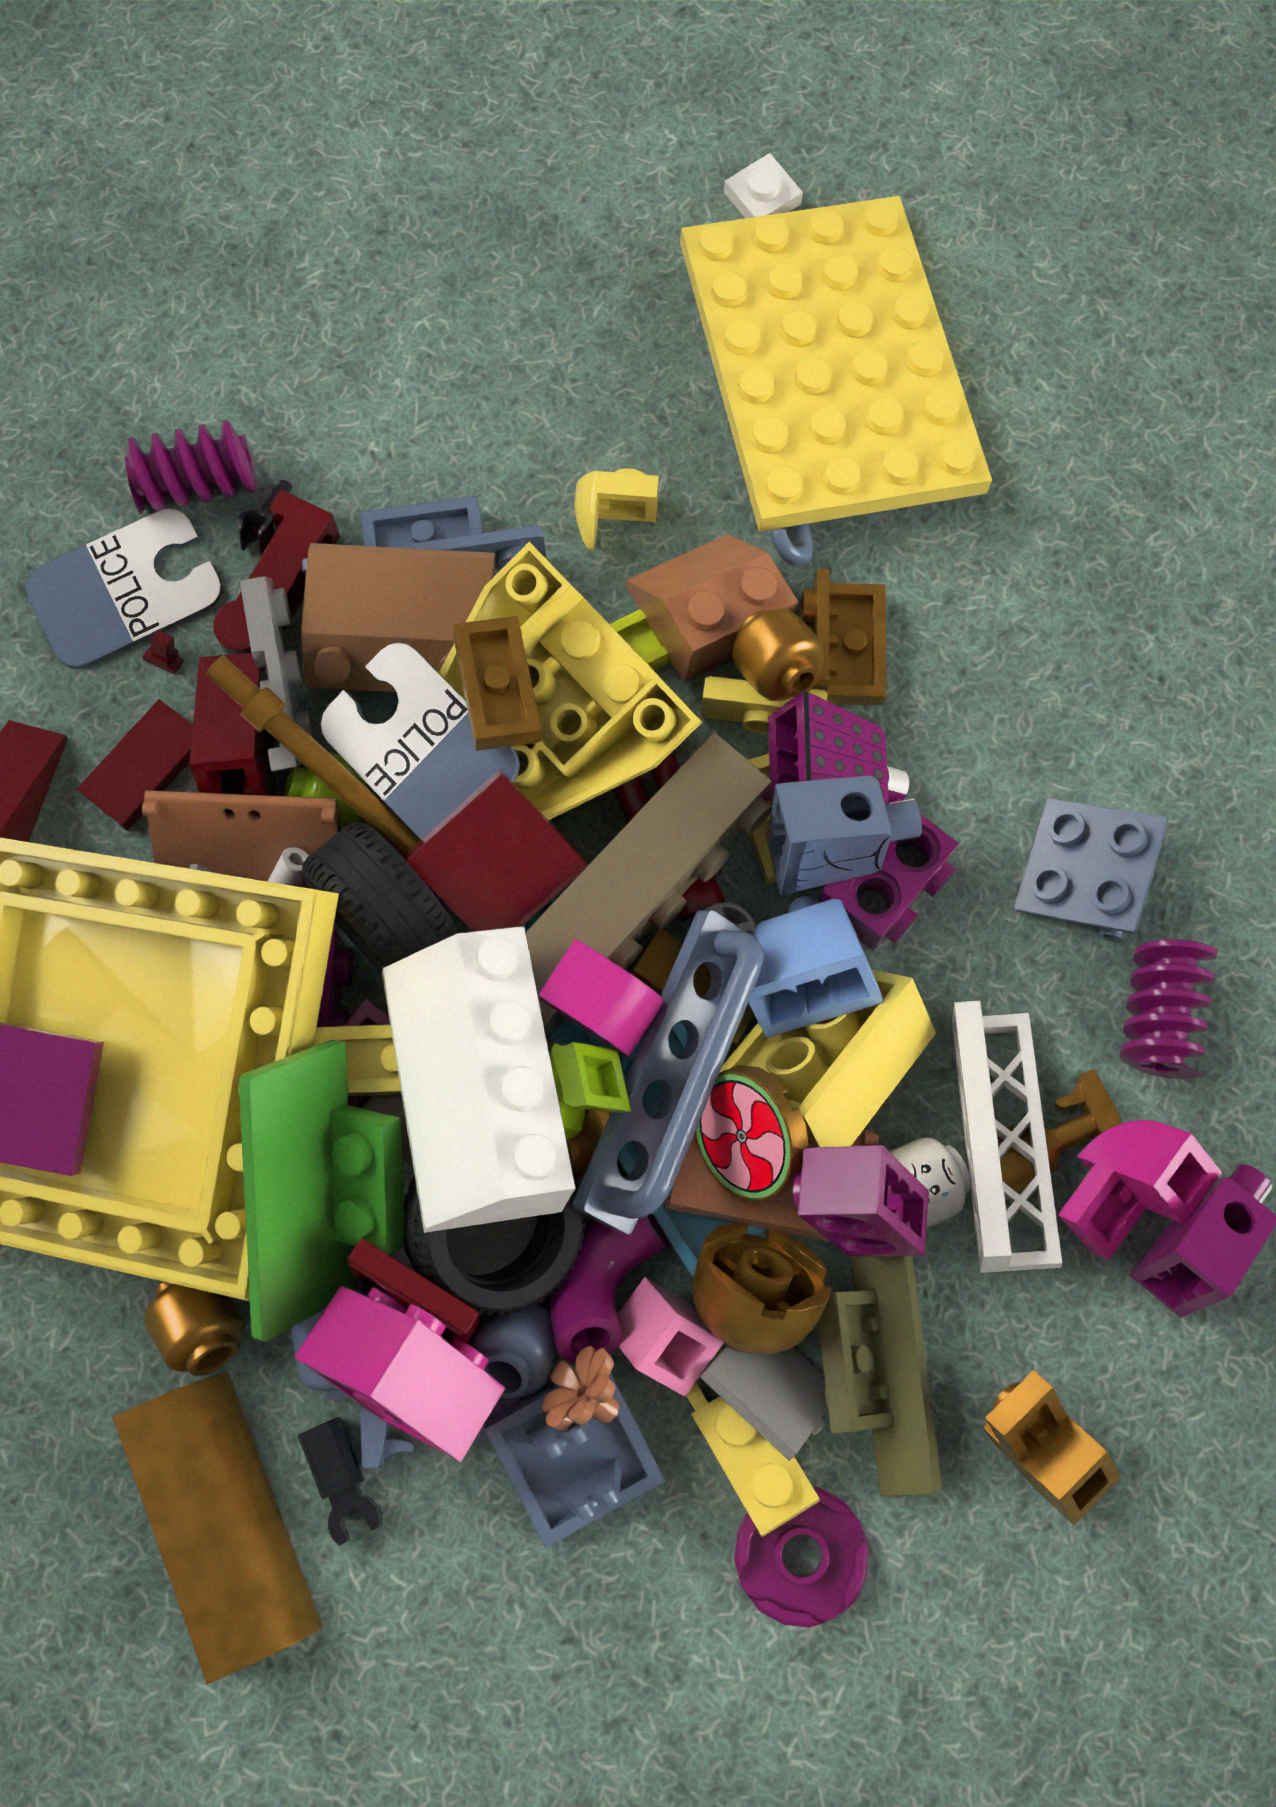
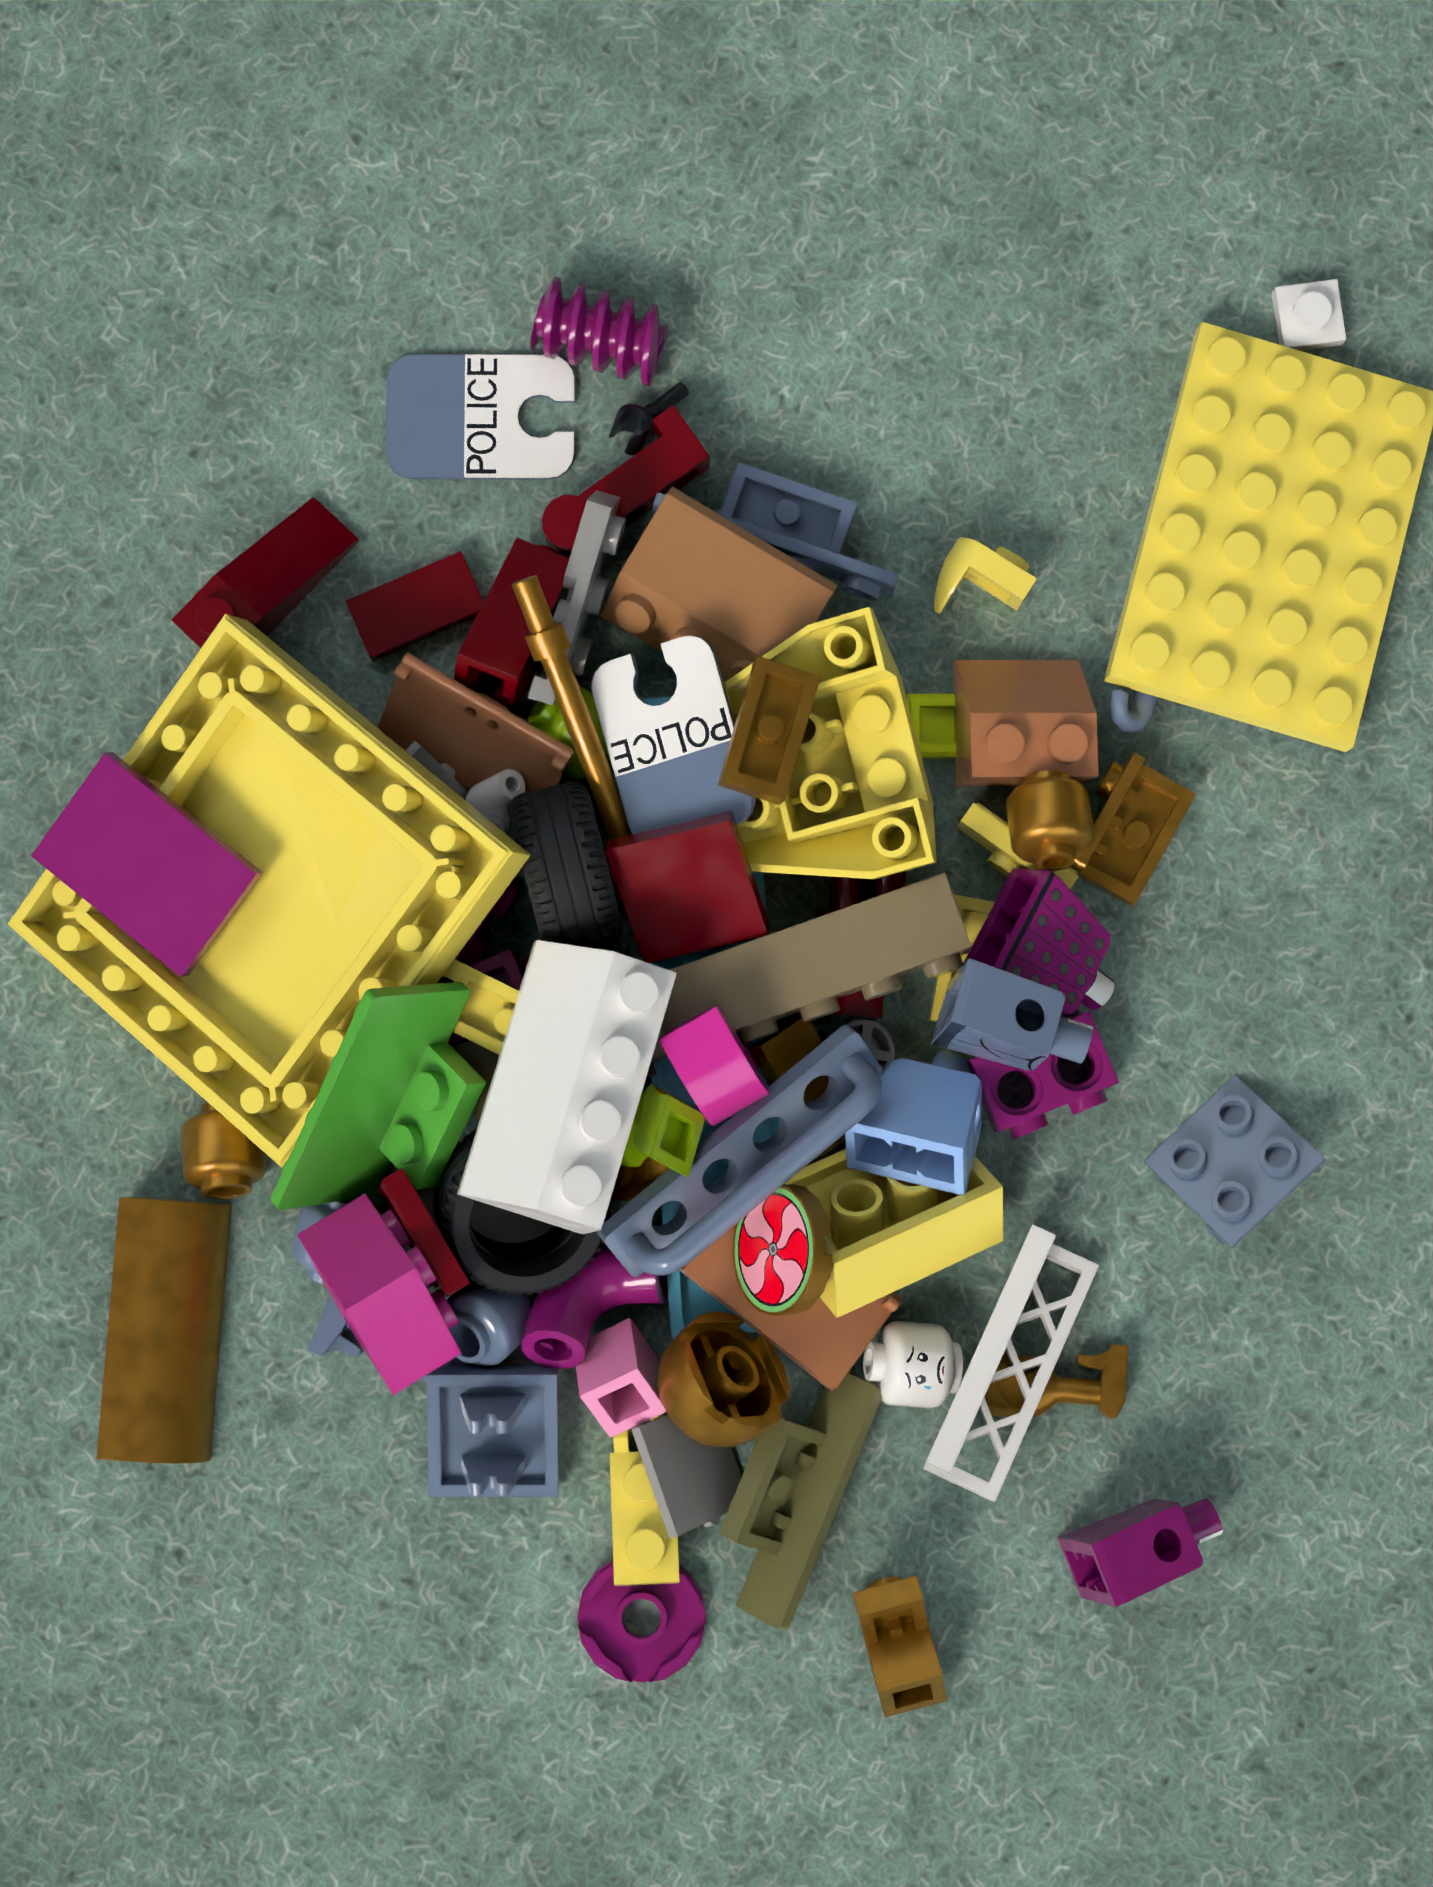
camera: 25 degrees right, 10 degrees up
(163, 653) = (486, 505): dark red piece -> none
(337, 1476) = (283, 1343): black bar -> none
(582, 1391) = (524, 1389): nougat plant -> none
(862, 1201) = (846, 1361): magenta brick -> none
(1132, 1171) = (1105, 1454): dark pink brick -> none
(1164, 1005) = (1225, 1326): magenta piece -> none

